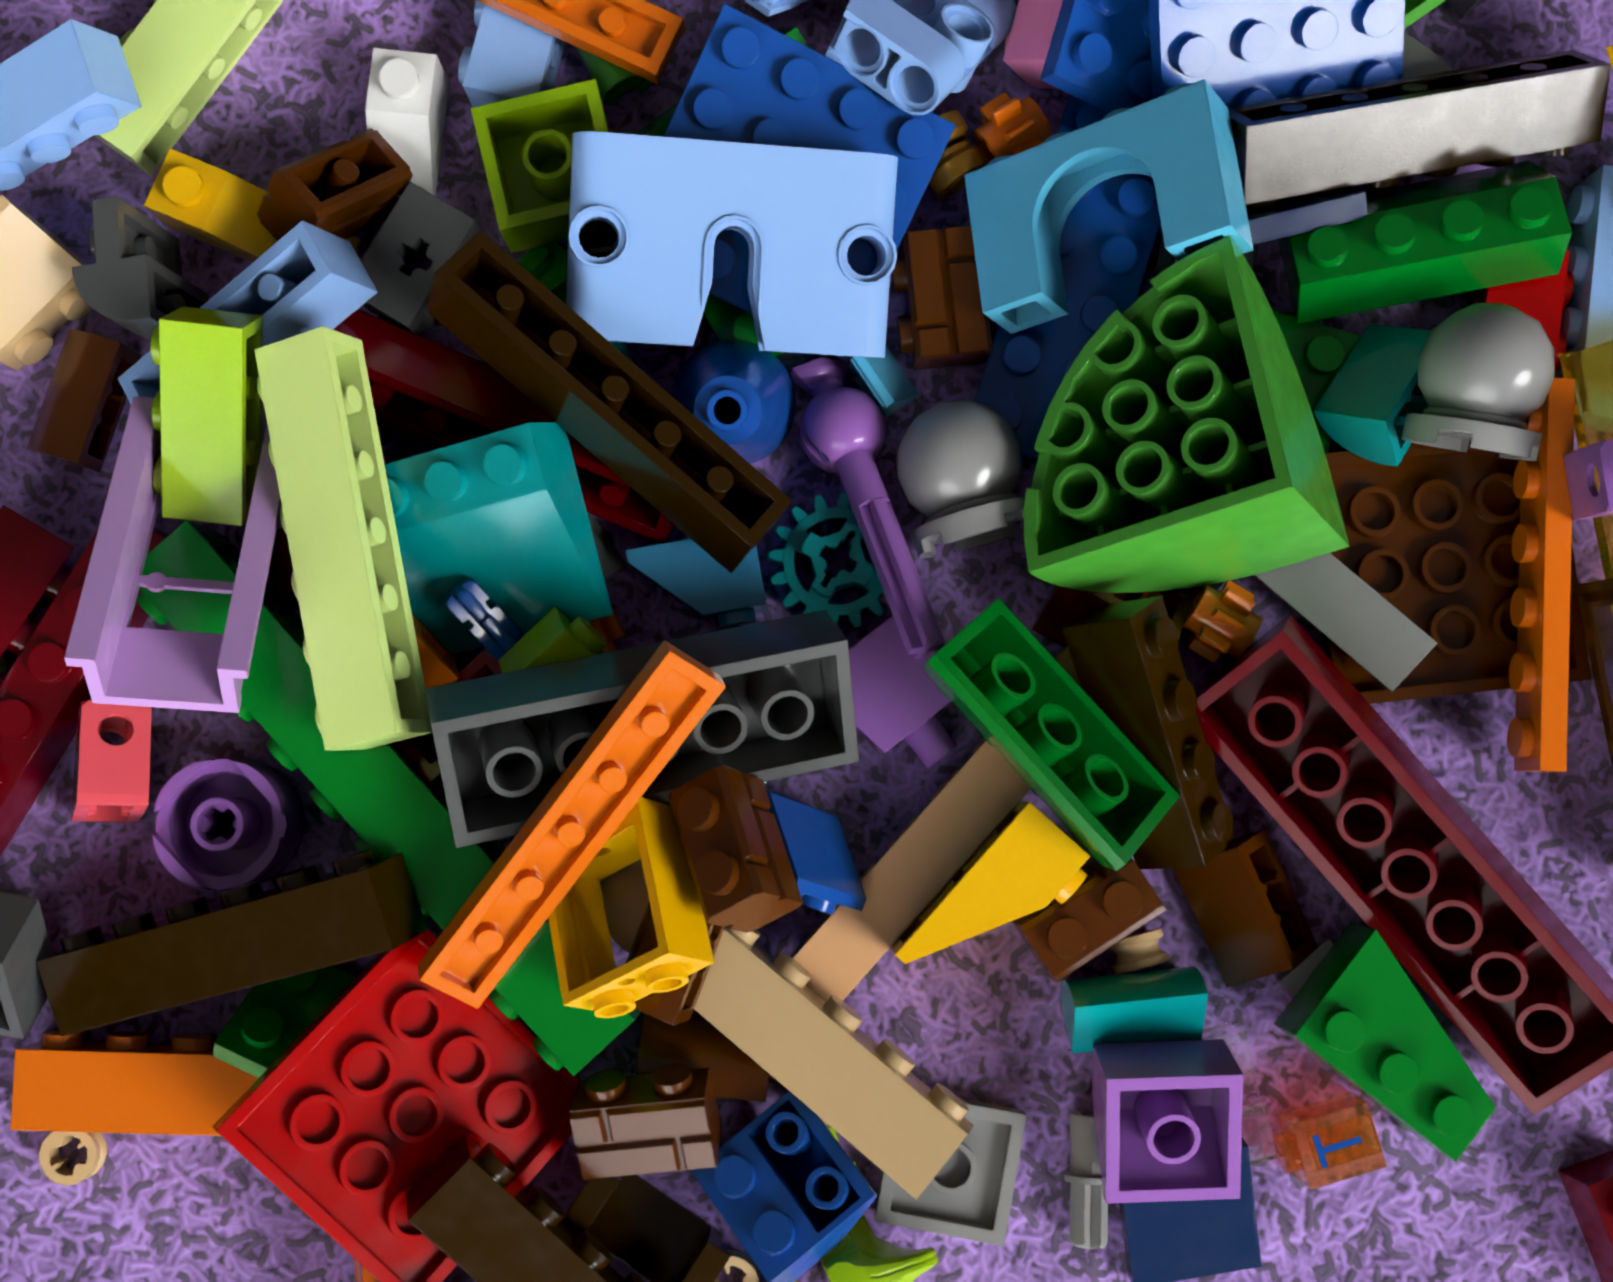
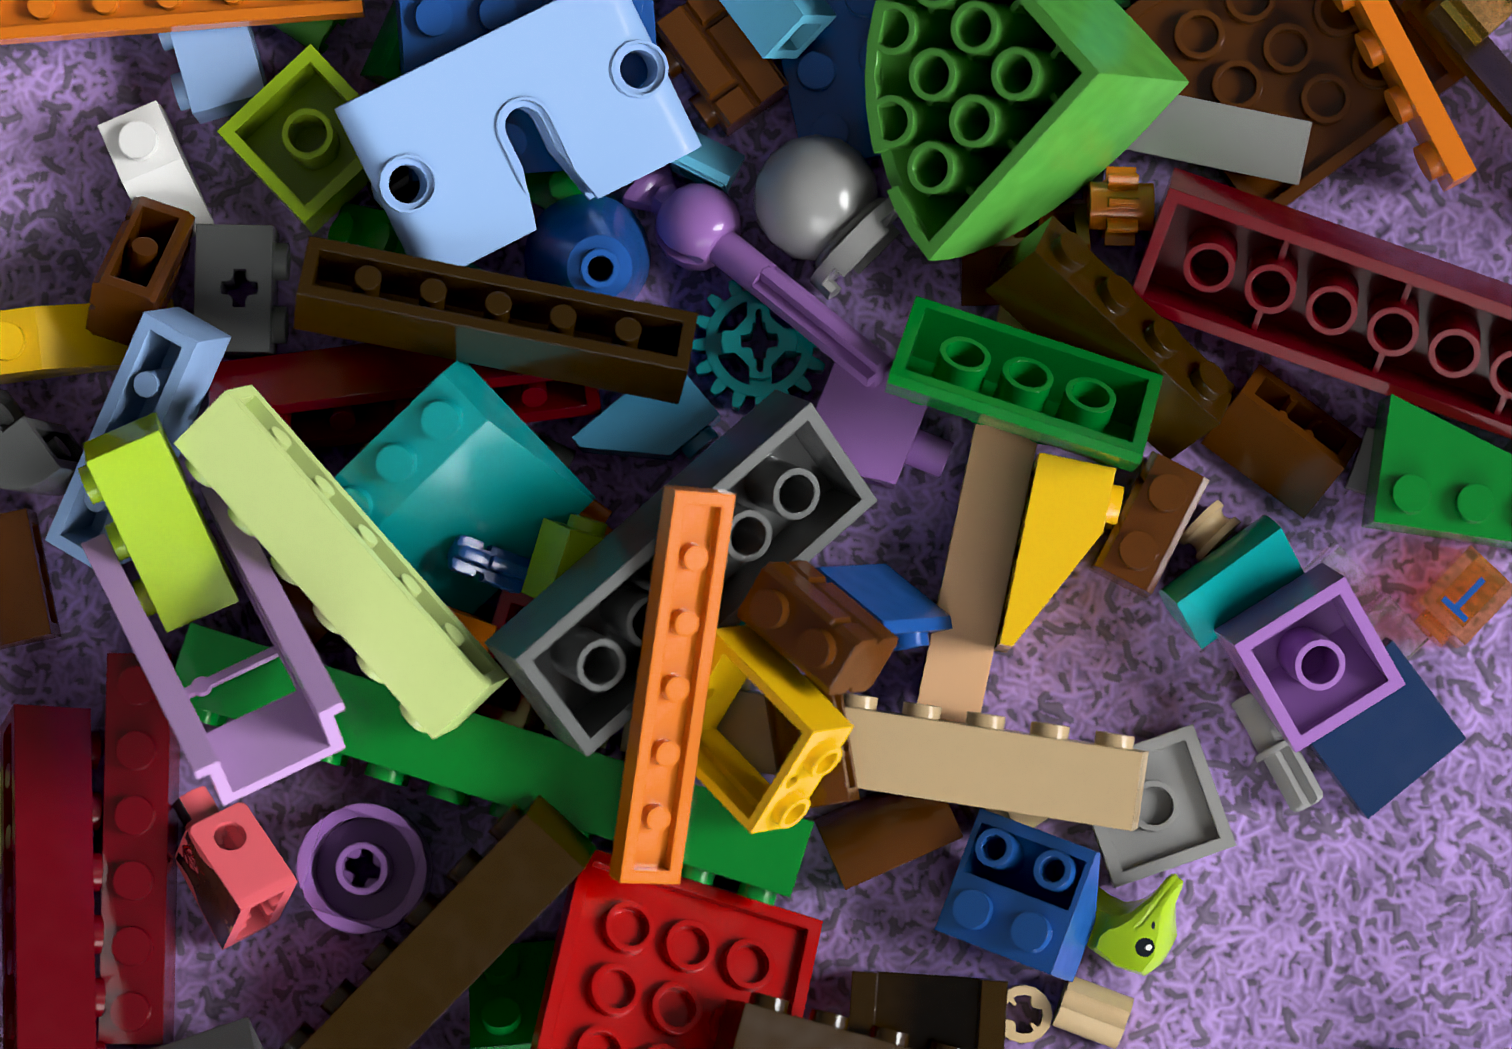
camera: 25 degrees left, 0 degrees up
(646, 1122) = (872, 907): reddish brown brick -> none

